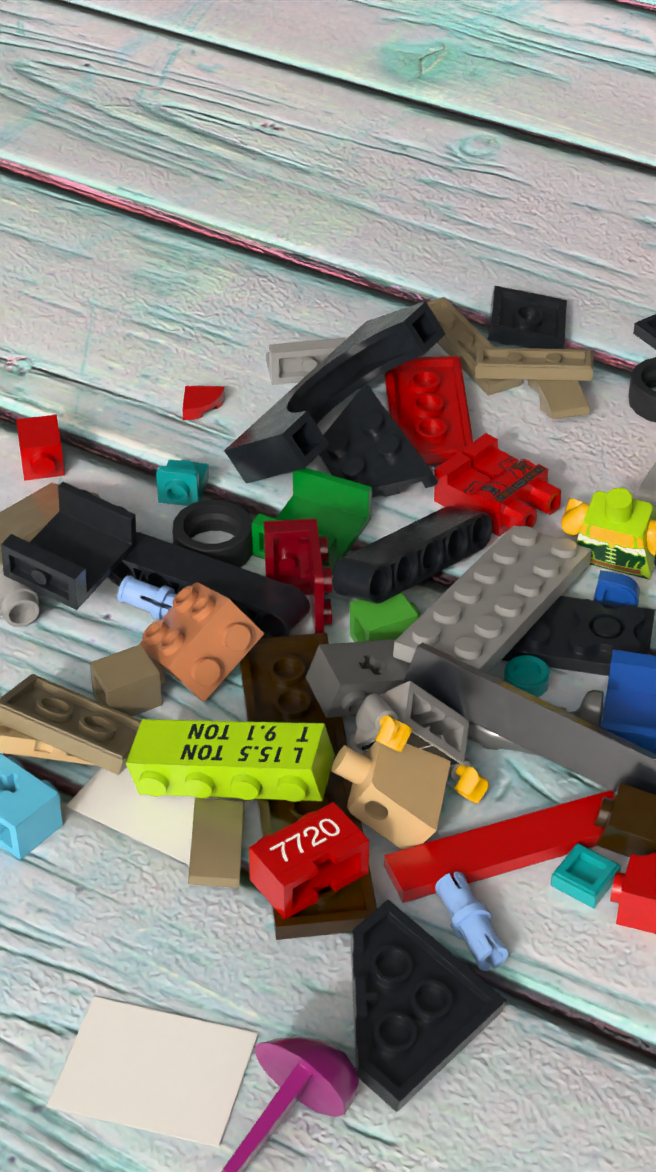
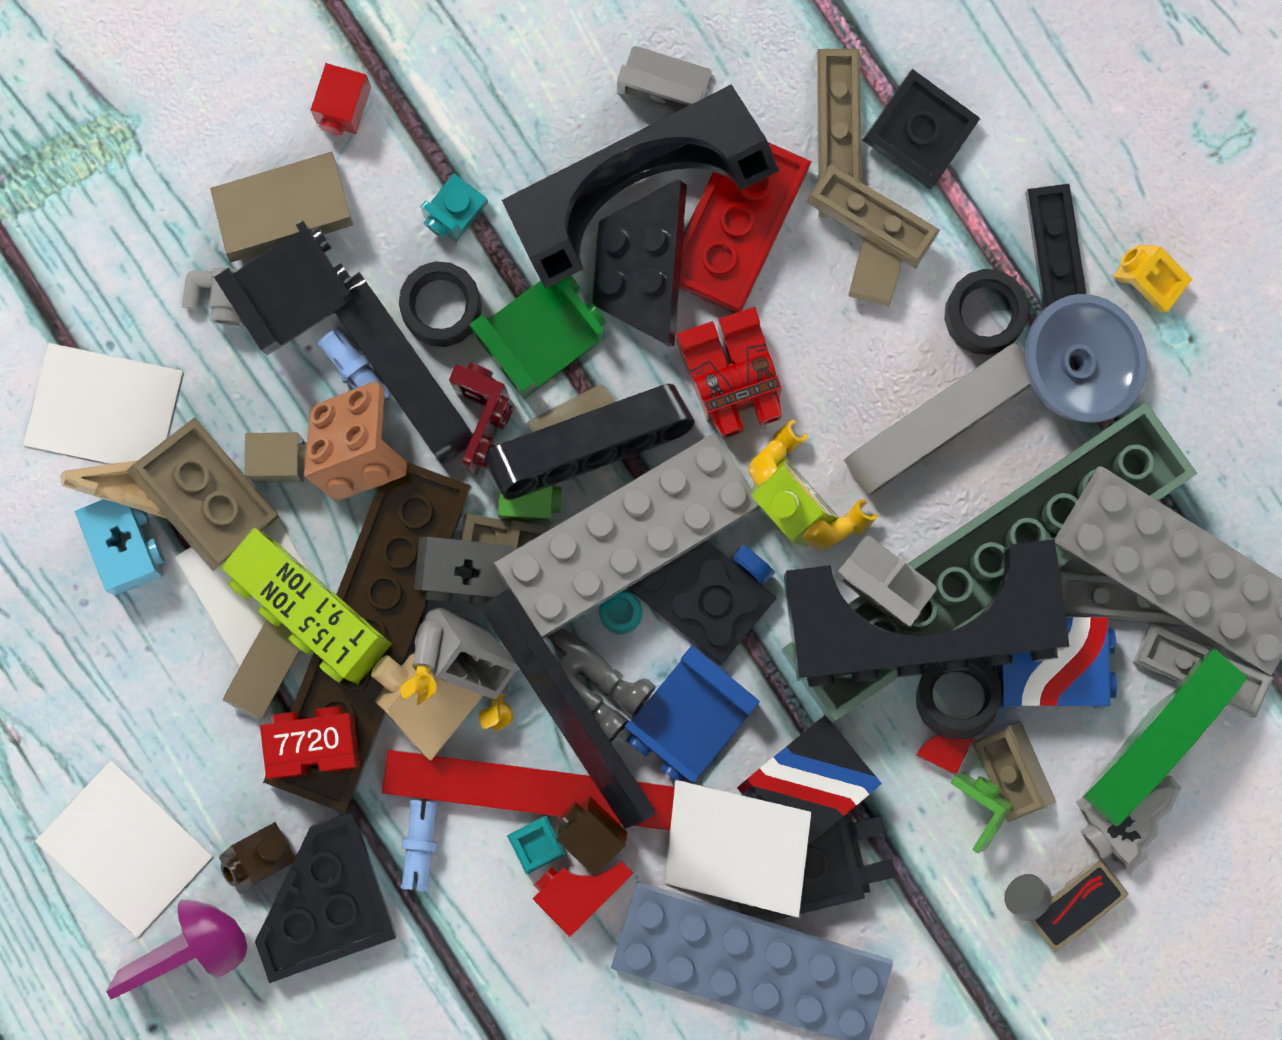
camera: 30 degrees right, 40 degrees up
(201, 399) = (530, 92): red tile -> none
(306, 1001) = (256, 858): none -> dark brown bracket

